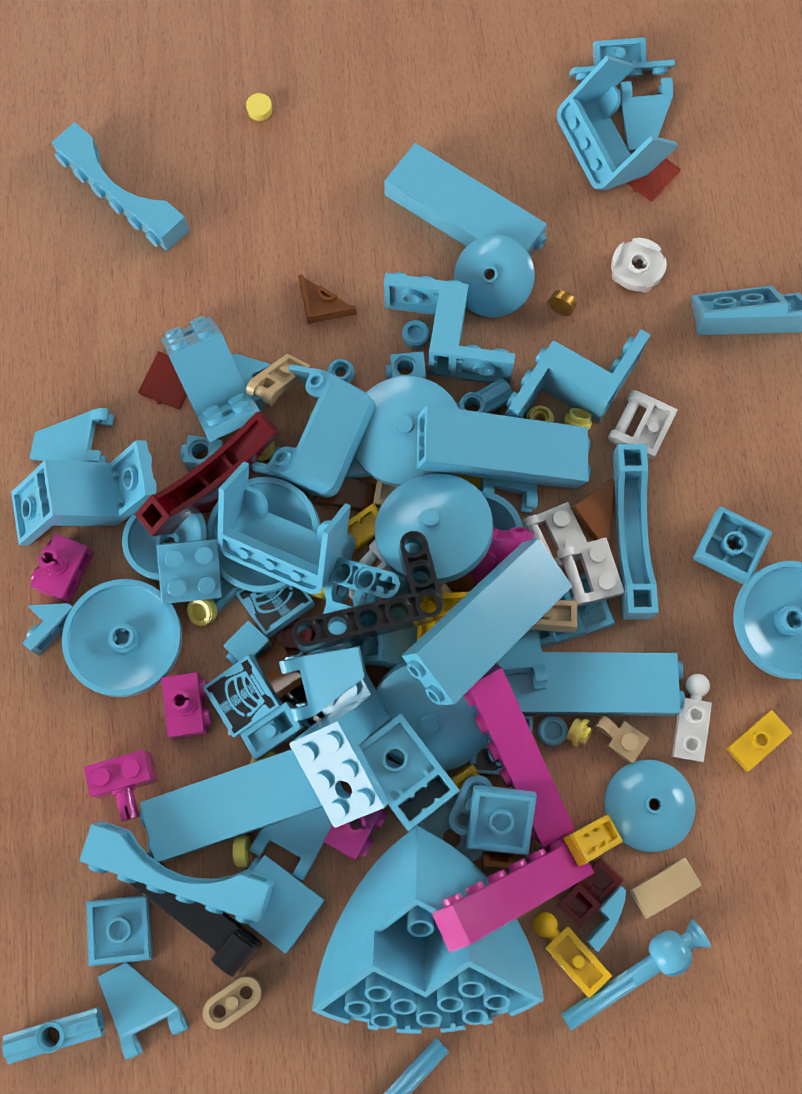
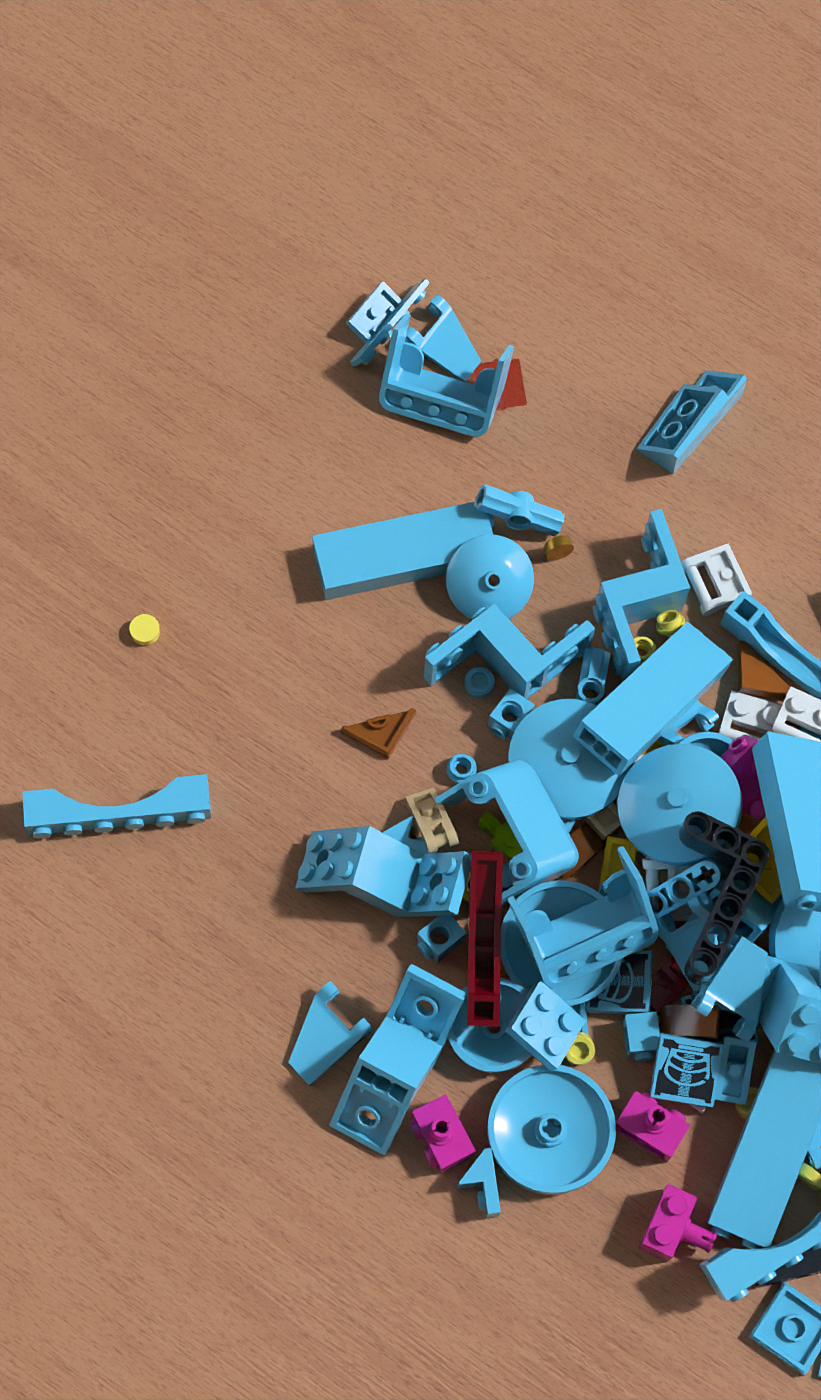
camera: 55 degrees left, 5 degrees down
(163, 383) = (338, 916): clear red piece -> none
(562, 252) = (519, 510): none -> medium azure piece
(631, 277) = (574, 479): white plate -> none

